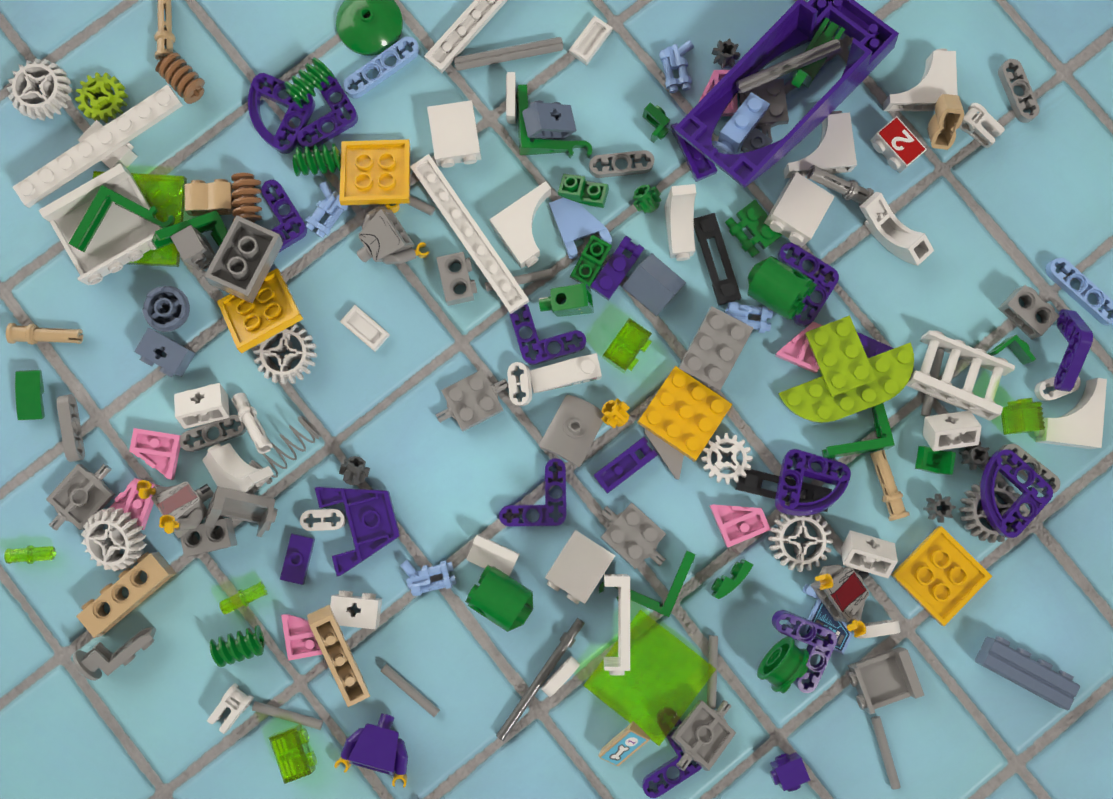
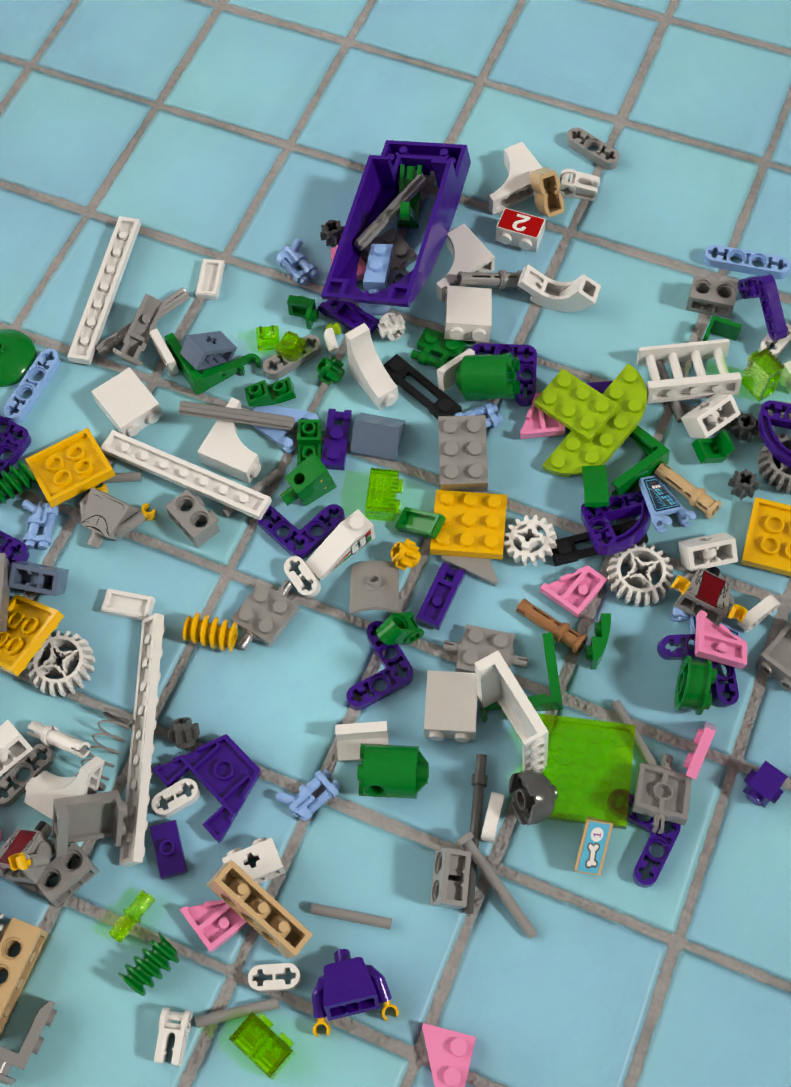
camera: 20 degrees left, 20 degrees down
(300, 266) = (38, 578): none -> sand blue brick
(320, 455) = (142, 744): none -> white plate
(325, 710) = (276, 984): none -> white beam
(418, 394) = (210, 633): none -> yellow piece
(498, 65) = (138, 332): none -> light grey piece
(499, 710) = (450, 878): none -> light grey brick
(528, 686) = (497, 885): none -> light grey bar
(539, 203) = (236, 415): none -> light grey axle
(572, 479) = (399, 629): none -> green piece
(597, 687) = (533, 796): none -> dark grey cylinder
(610, 132) = (267, 337): none -> clear neon green tile
(624, 155) = (291, 346): none -> clear neon green tile
(643, 391) = (420, 522): none -> green tile
(665, 160) = (329, 336): none -> white arm
(704, 553) = (560, 631): none -> medium nougat pin
(723, 184) = (391, 326): none -> white gear
(747, 261) = (447, 372): none -> white tile
(757, 717) = (703, 740): none -> bright pink wing
(810, 442) = (595, 486): none -> green slope
(825, 642) = (718, 643): none -> bright pink wing
(858, 487) = (662, 503): none -> flag

